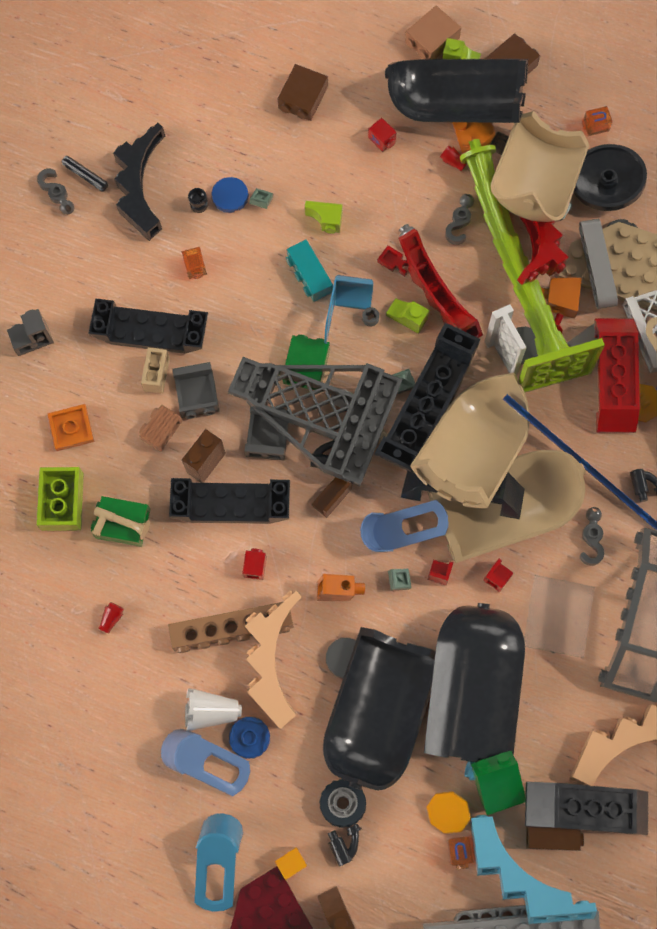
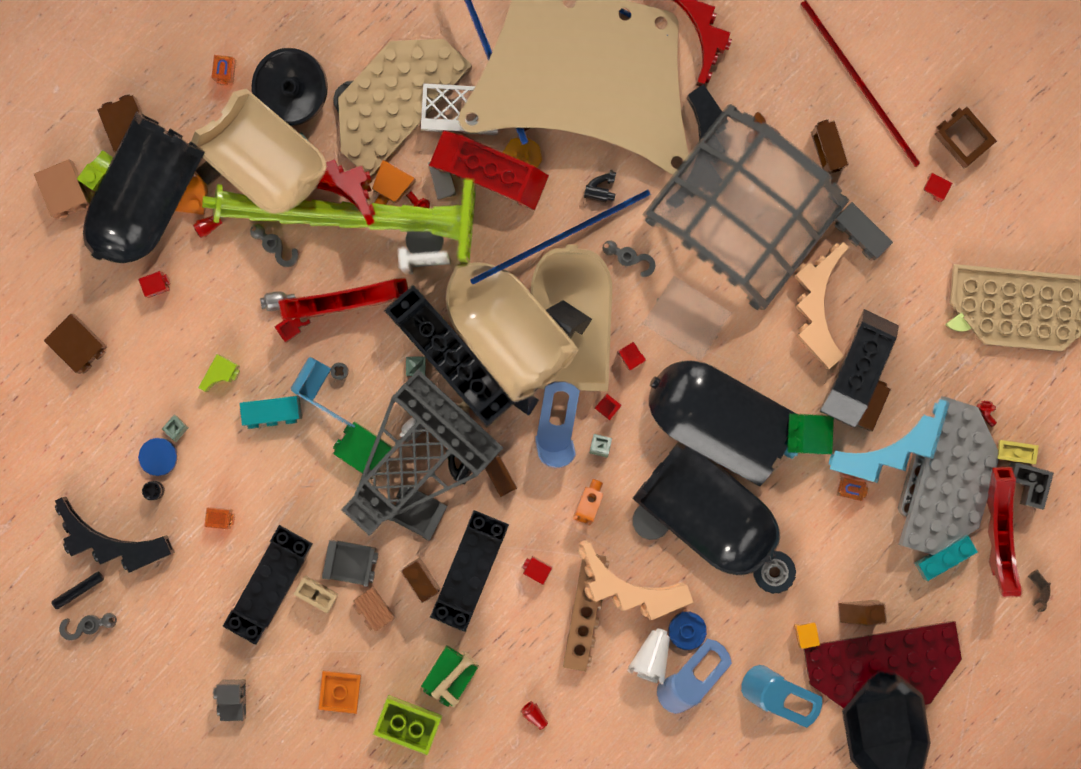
camera: 70 degrees left, 15 degrees up
(339, 848) = (816, 588): black plant -> none
(408, 314) = (351, 336): lime arch -> none
(448, 812) = (816, 485): light orange piece -> none
(598, 263) = (375, 138): light grey beam -> none

